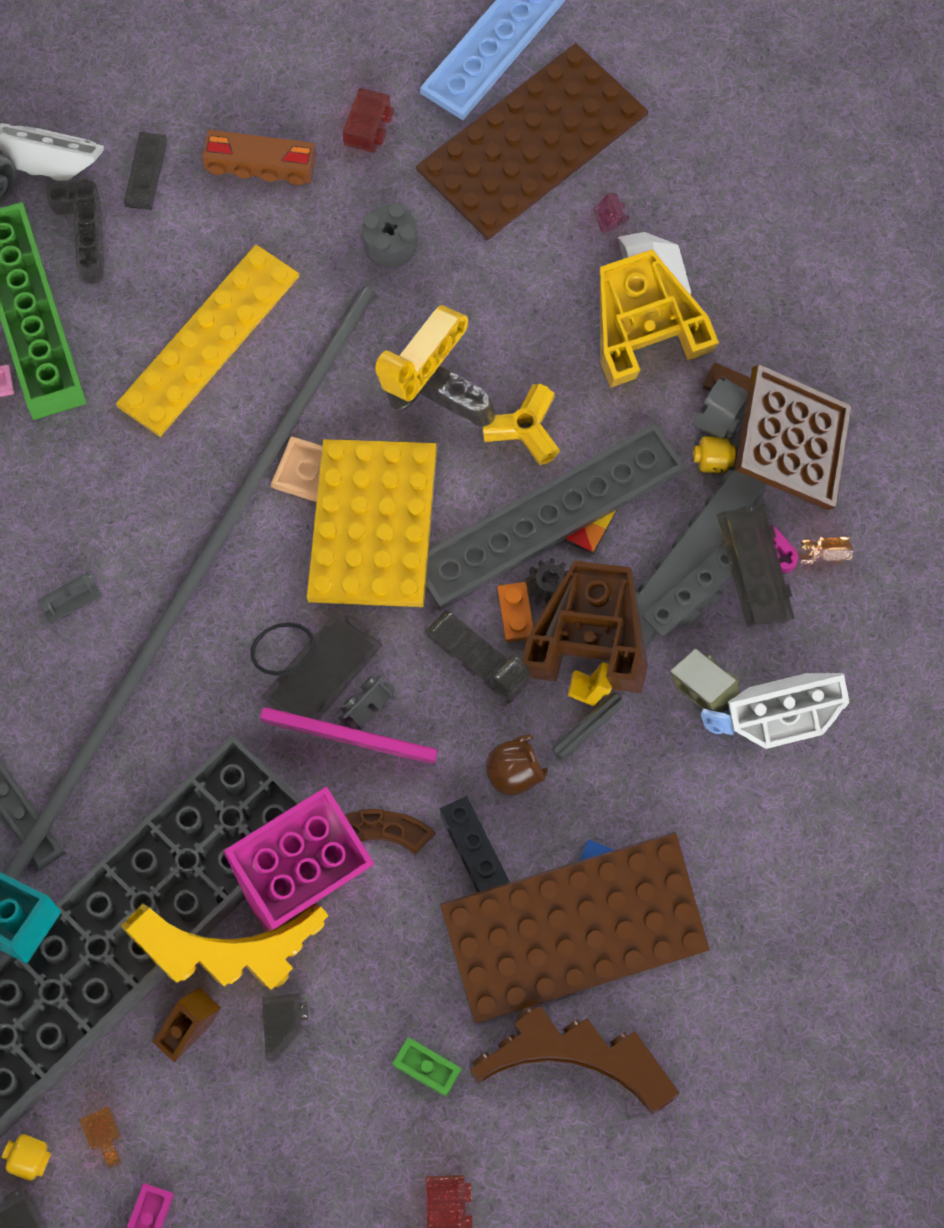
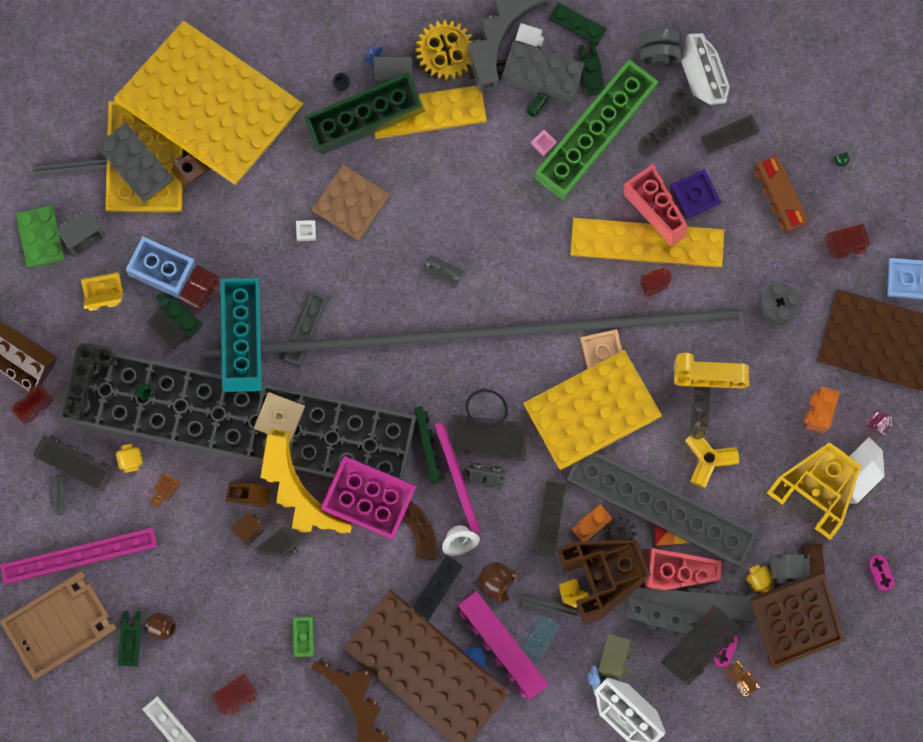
camera: 55 degrees right, 10 degrees up
(107, 907) = (279, 414): none -> tan plate
(171, 295) = (655, 203): none -> coral wedge
(189, 250) = (695, 194): none -> dark purple plate
(233, 1048) = (248, 528): none -> reddish brown brick
(264, 352) = (655, 281): none -> clear red brick
(266, 71) = (842, 159): none -> dark green hinge
(291, 753) = (427, 436): none -> dark green plate
(432, 782) = (460, 541): none -> white hat
(553, 261) = (822, 410): none -> orange brick
(603, 812) = (502, 644): none -> dark pink brick
(622, 759) = (541, 637): none -> clear light blue plate
(643, 537) = (678, 570): none -> coral wedge
(792, 318) = (877, 575): none -> dark pink beam

